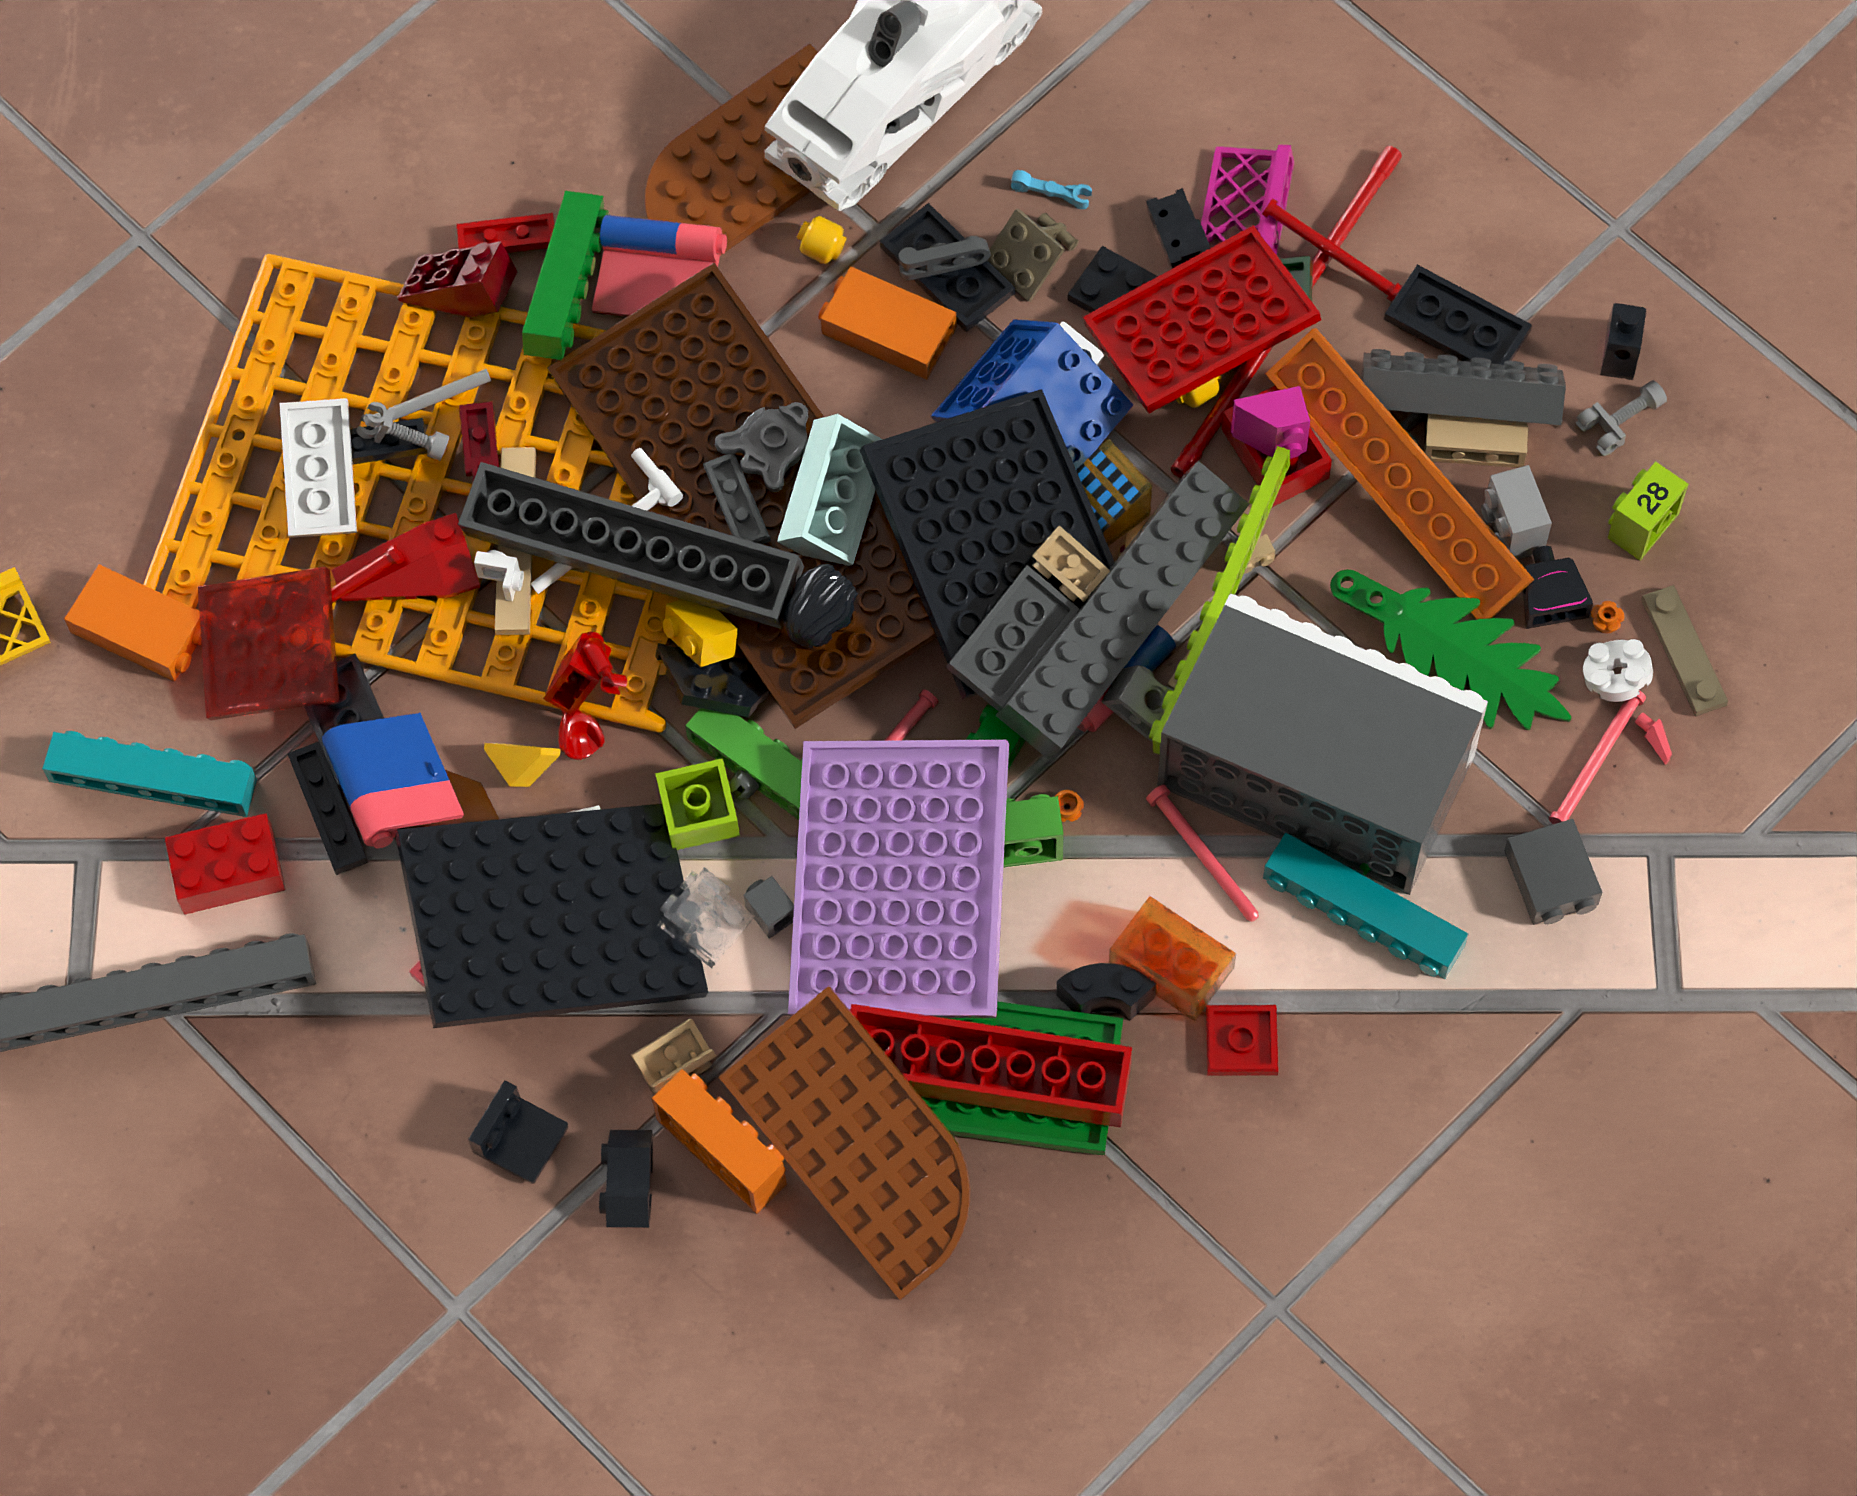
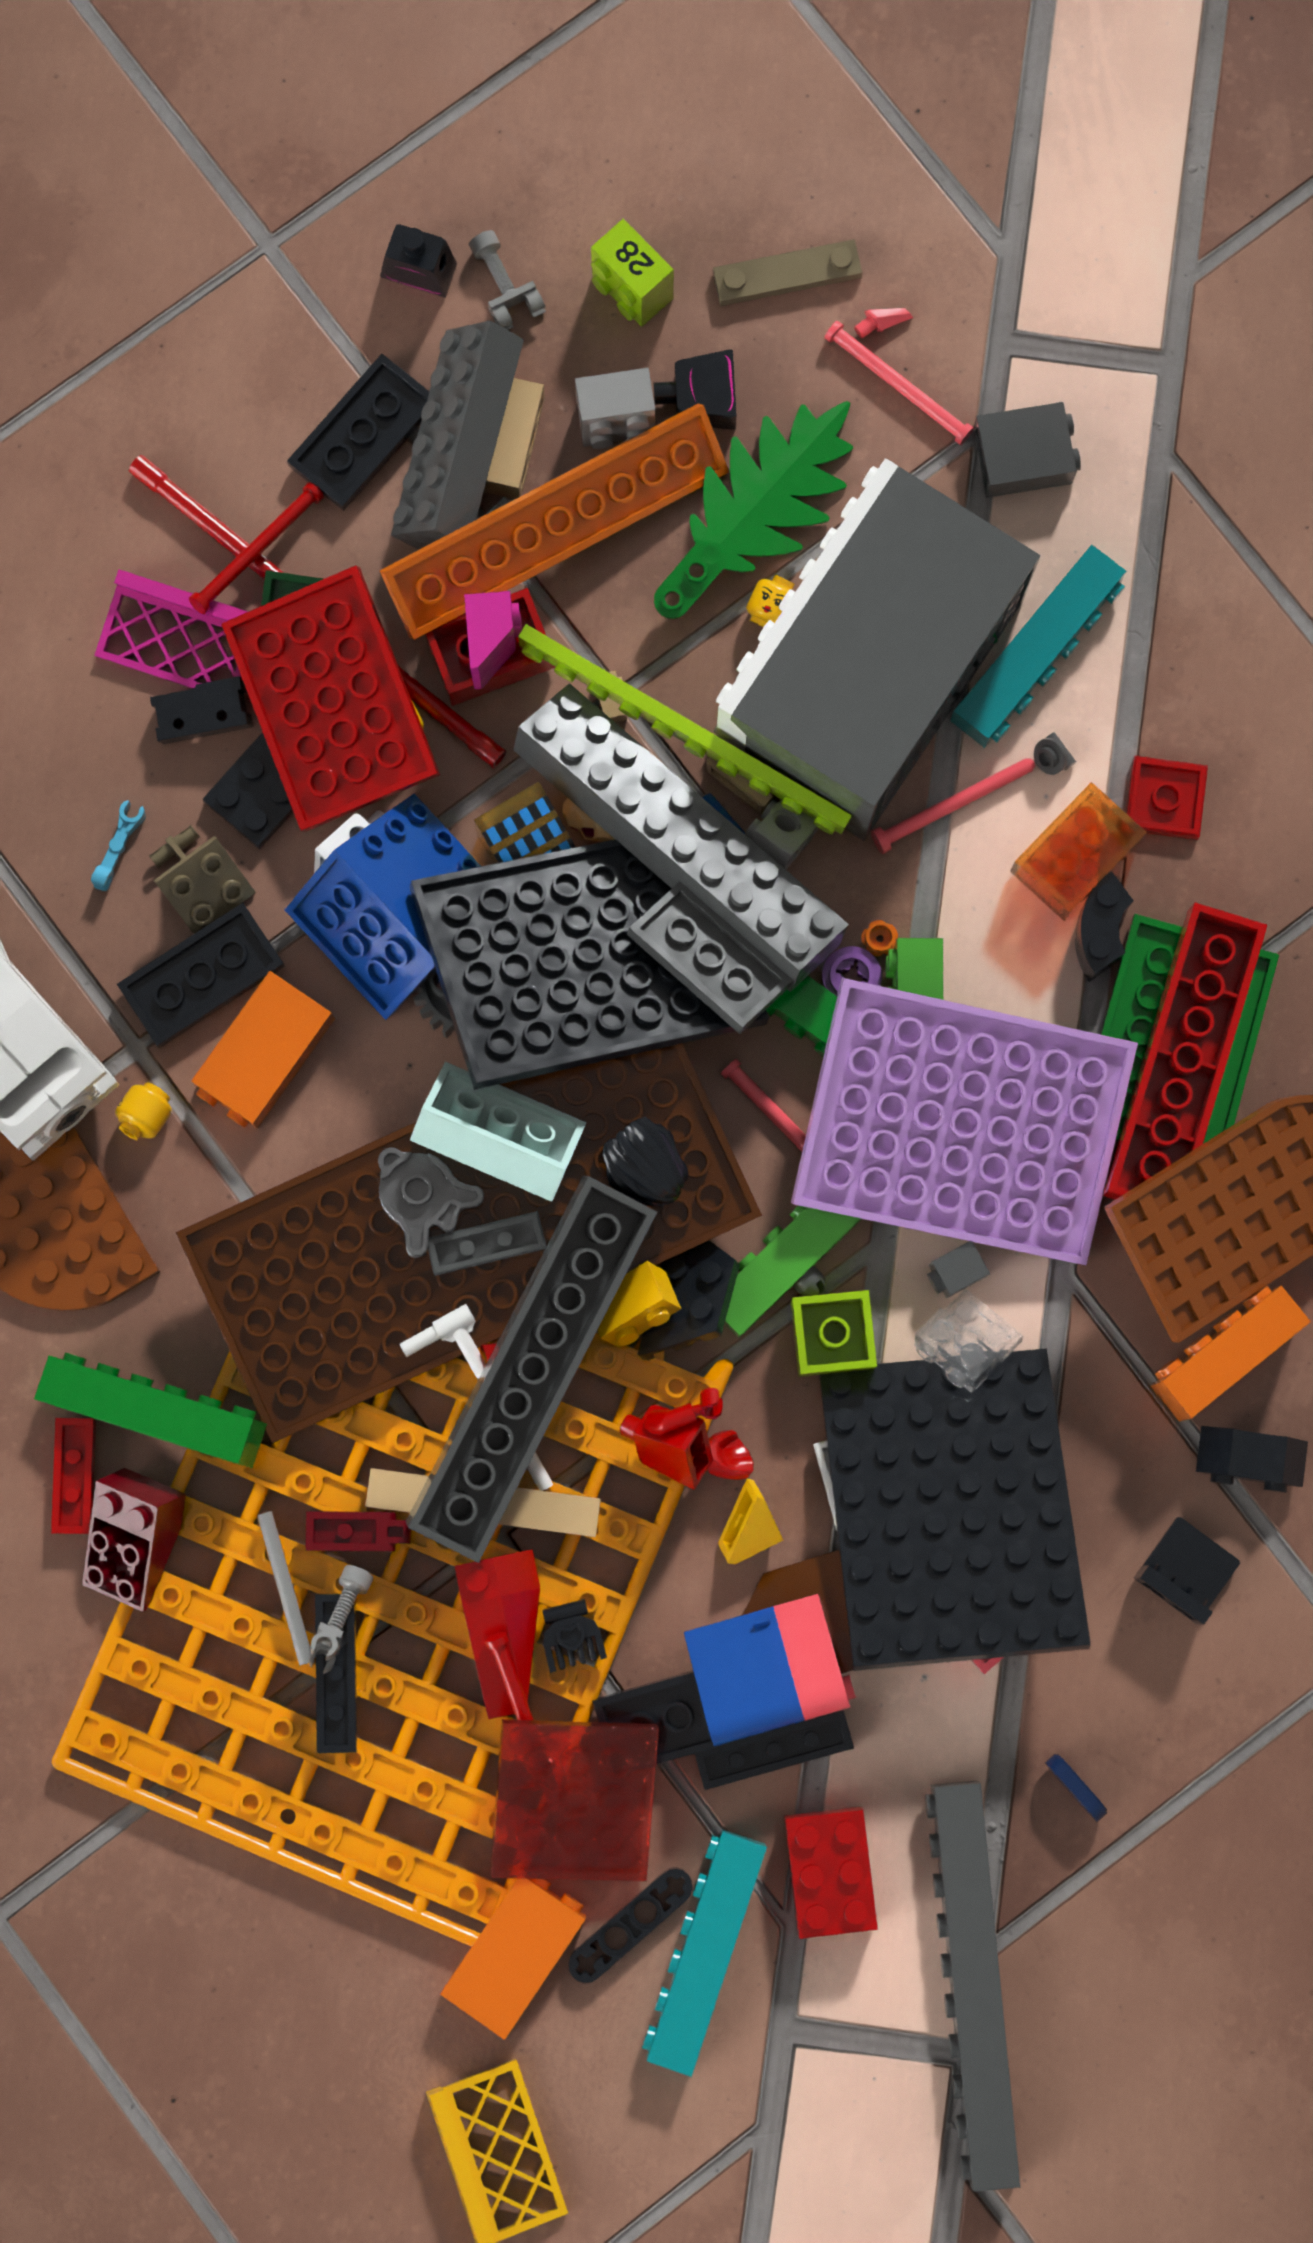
camera: 85 degrees left, 15 degrees up
(173, 710) = (627, 1921): none -> black beam
(315, 1061) = (1076, 1787): none -> dark blue tile
(318, 468) = (366, 1722): white plate -> none
(411, 622) = (569, 1631): none -> black piece
(499, 567) = (523, 1525): white bracket -> none
(649, 259) = (147, 1307): coral door -> none
(668, 1054) = (1121, 1393): tan bracket -> none
(943, 258) = (198, 975): dark grey plate -> none
(1040, 777) = (843, 960): none -> medium lavender gear
(1070, 564) = (627, 884): tan bracket -> none
(1265, 934) = (1052, 755): none -> dark grey plate
(1603, 624) = (748, 339): orange plate -> none
(1613, 654) = (817, 358): white plate -> none

